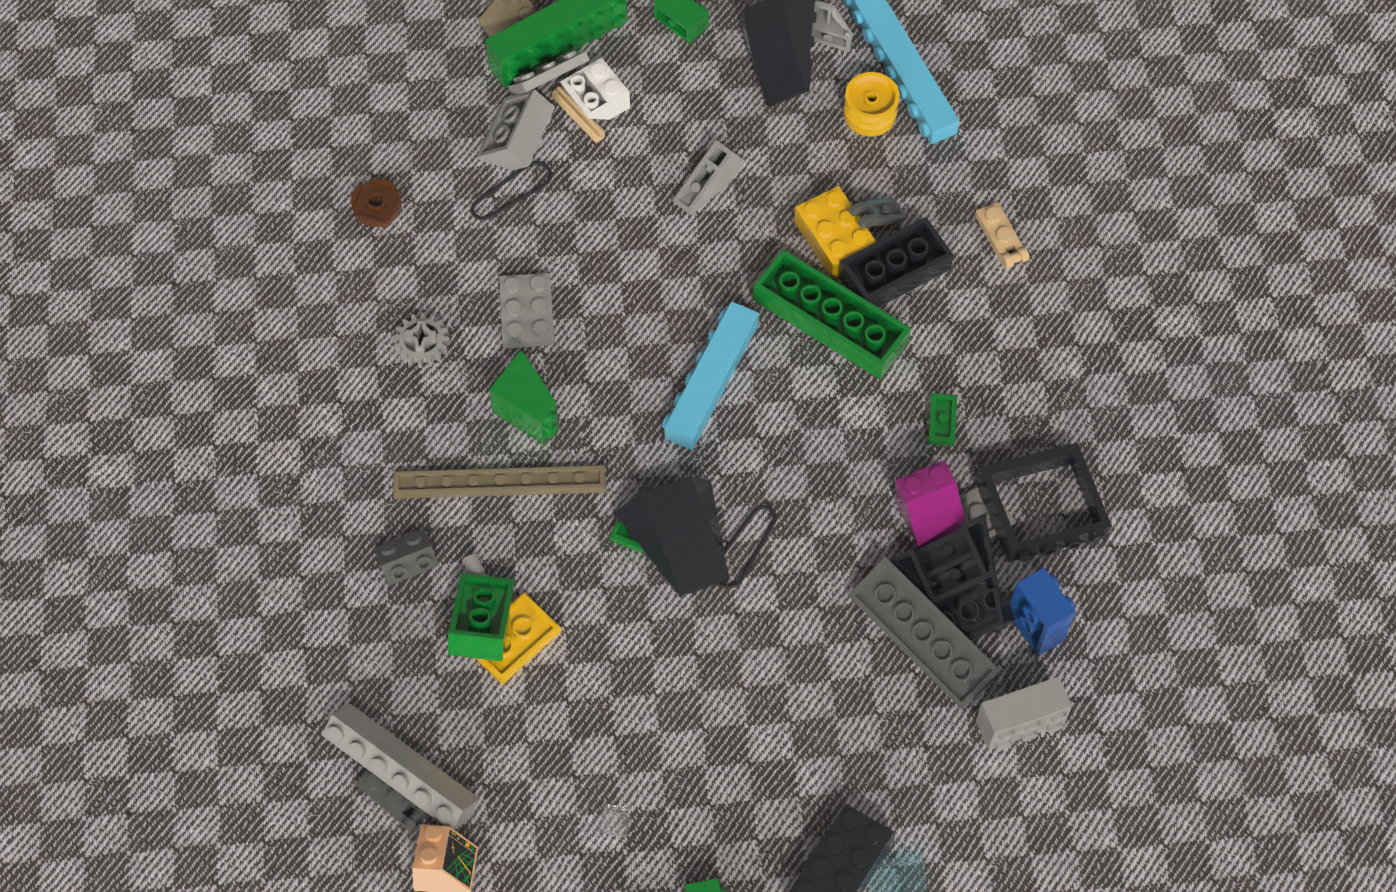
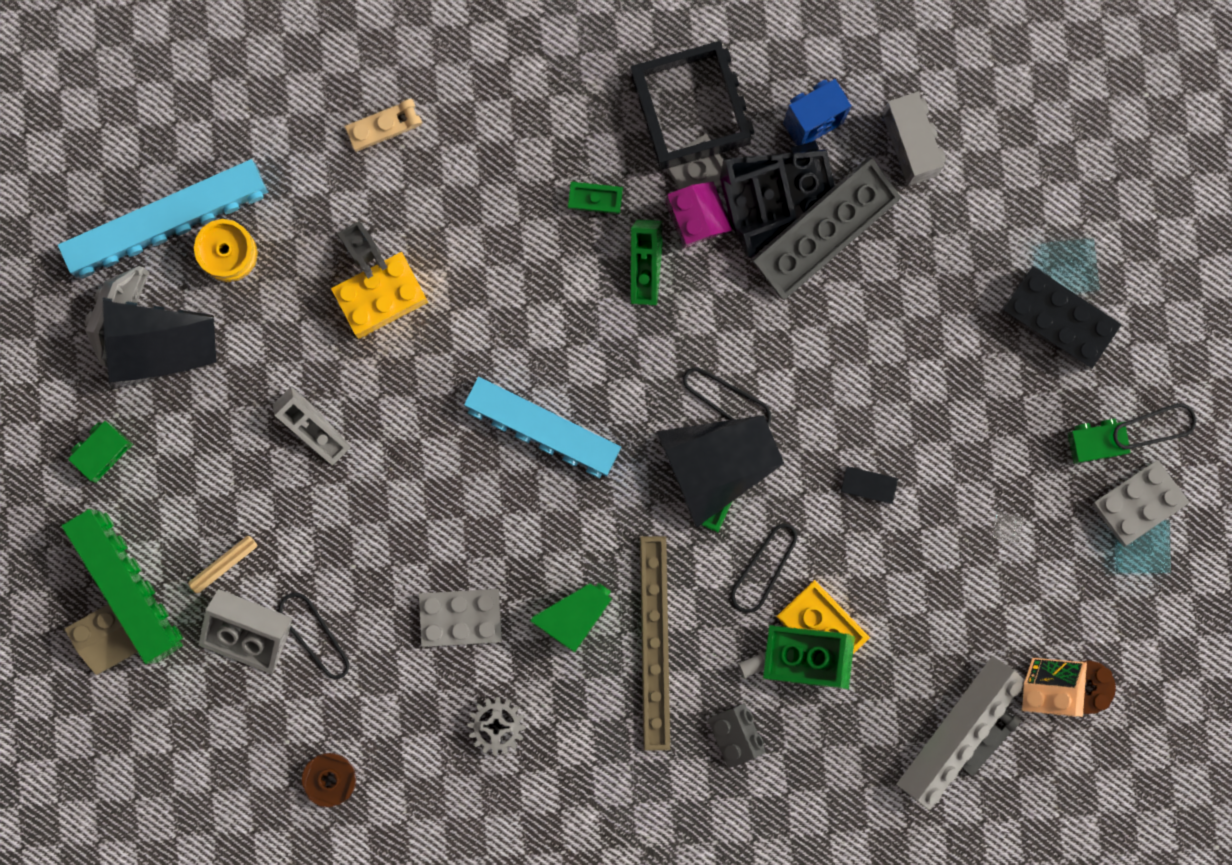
camera: 90 degrees left, 20 degrees up
(547, 71) = (178, 595): light grey plate -> none
(568, 595) = (755, 559): none -> black piece
(598, 91) = (201, 544): white slope -> none
(658, 681) = (869, 485): none -> black tile
(831, 314) = (478, 302): green brick -> none
(881, 463) = (646, 261): none -> green slope
(896, 263) = (422, 234): black brick -> none

